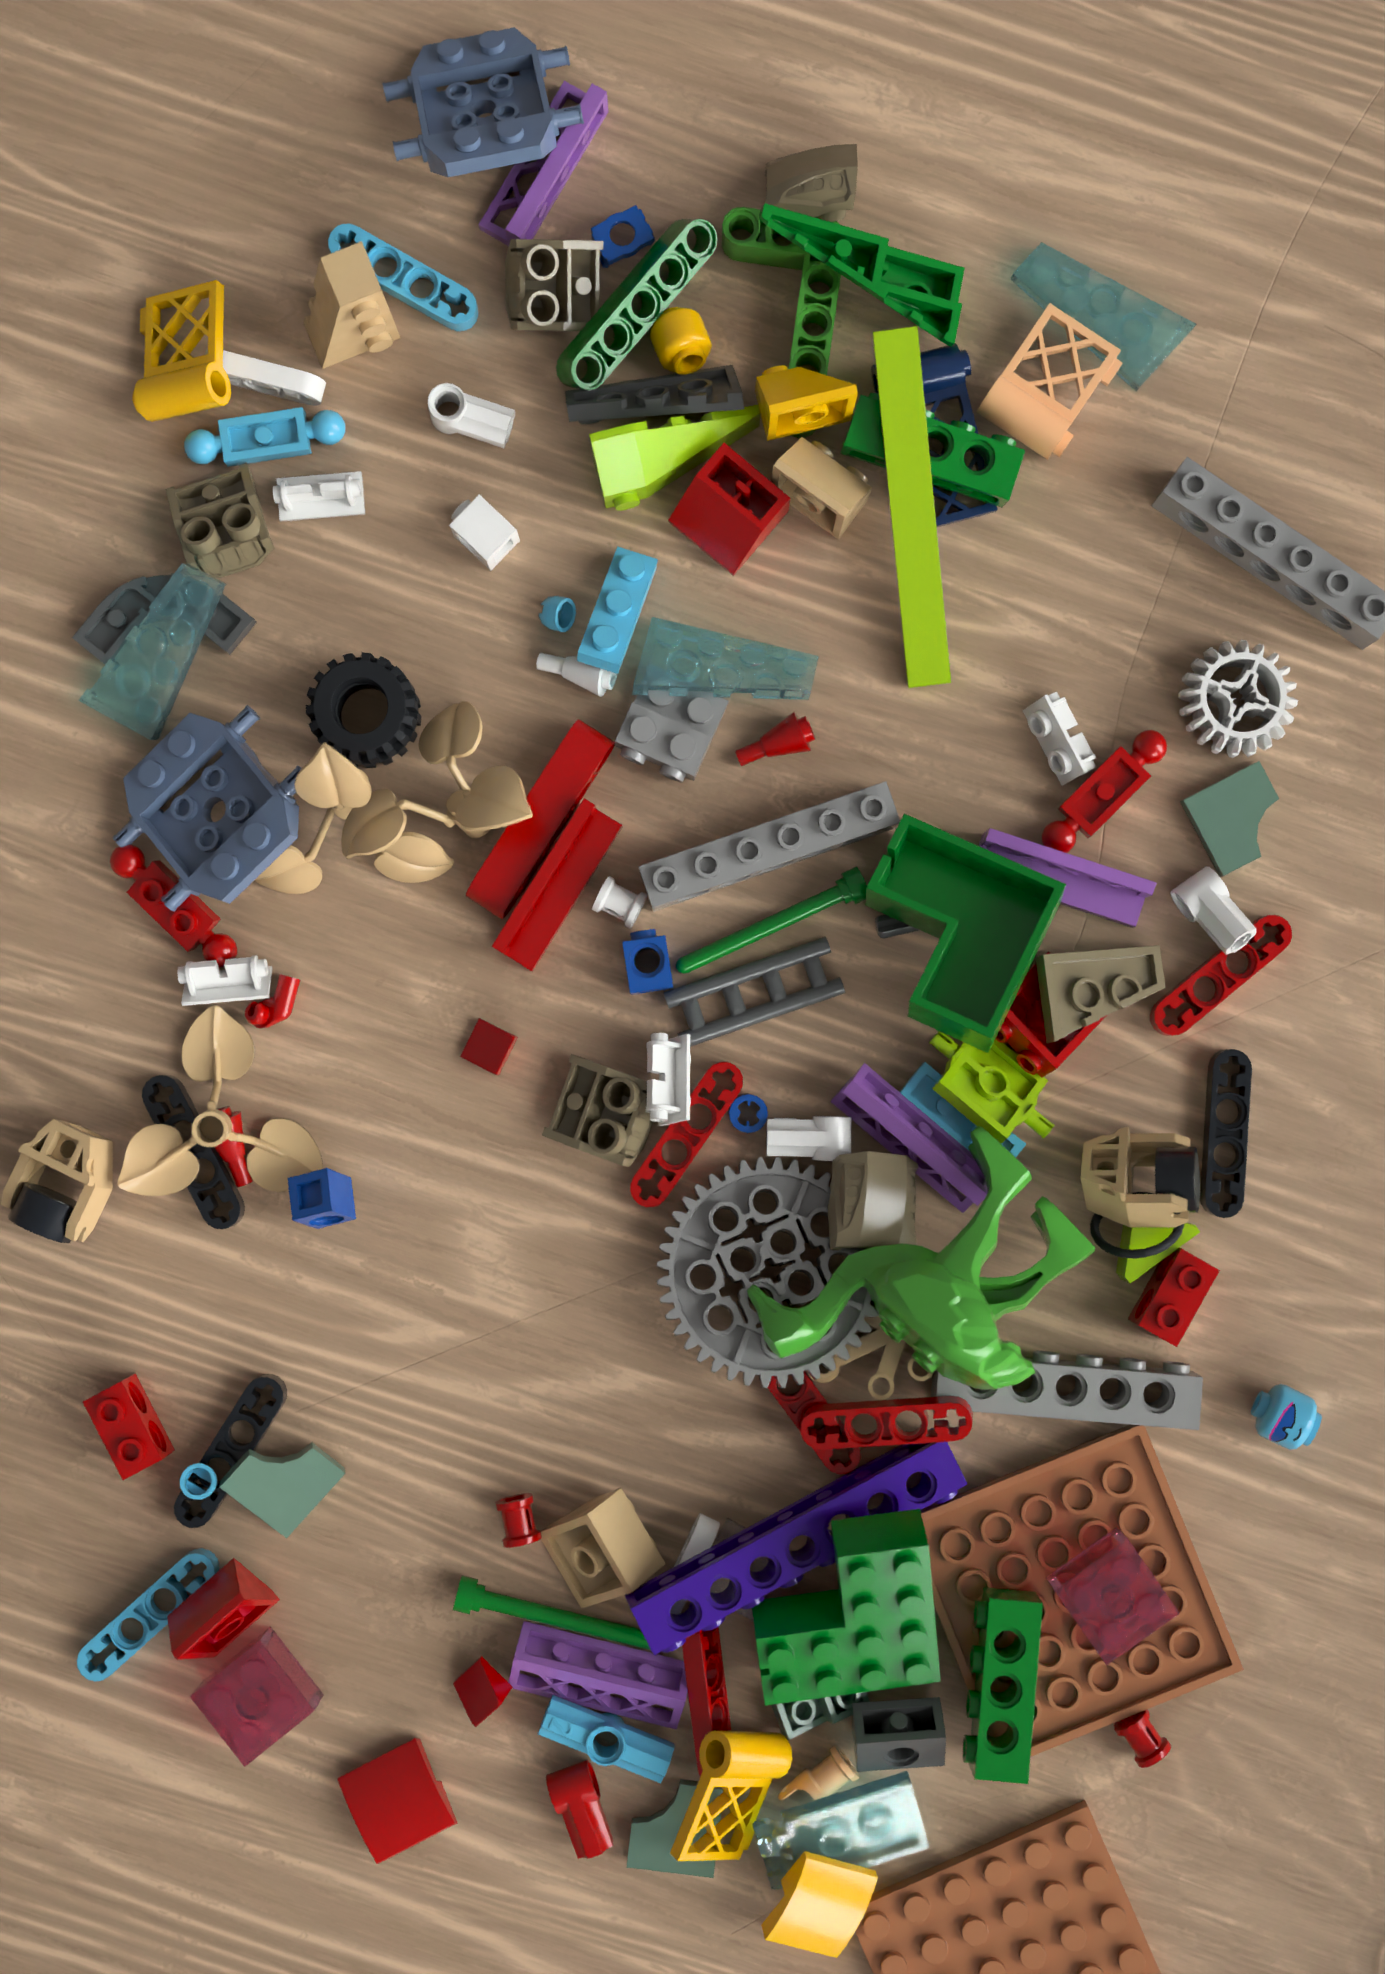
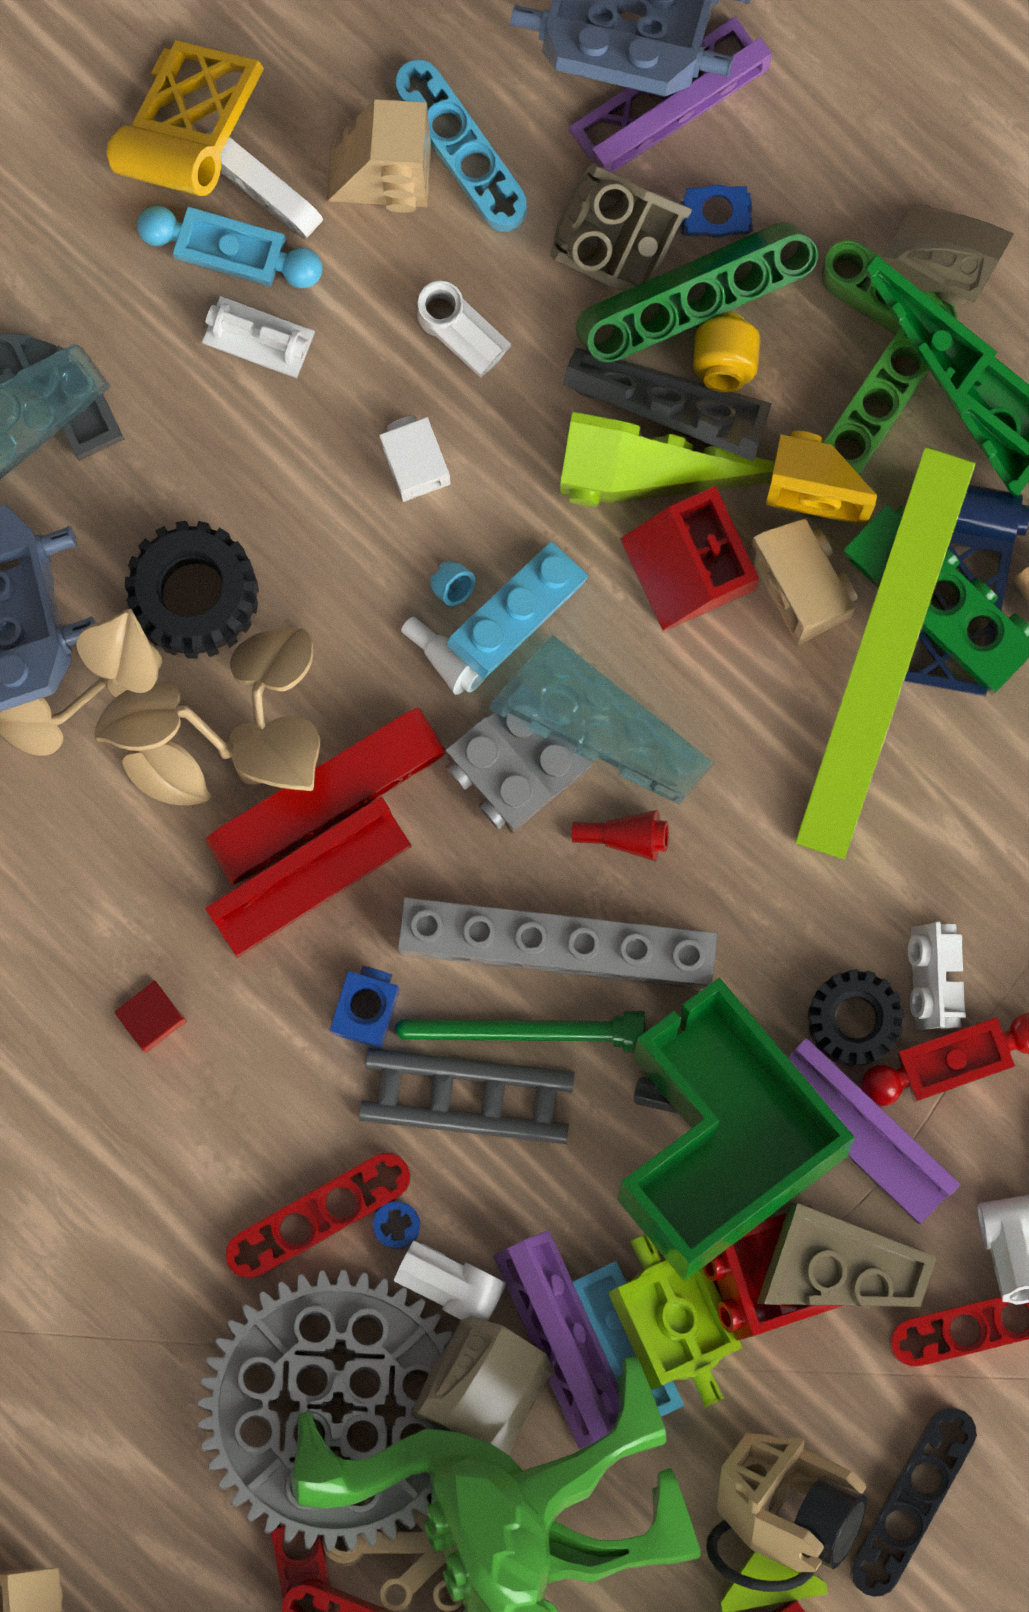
camera: 30 degrees right, 5 degrees down
(221, 523) = (137, 317): dark tan slope -> none
(601, 1112) = (240, 1147): dark tan slope -> none
(619, 902) = (367, 927): white bush -> none
(670, 1095) = (318, 1164): white hinge -> none
(1027, 773) = (866, 987): none -> black tyre

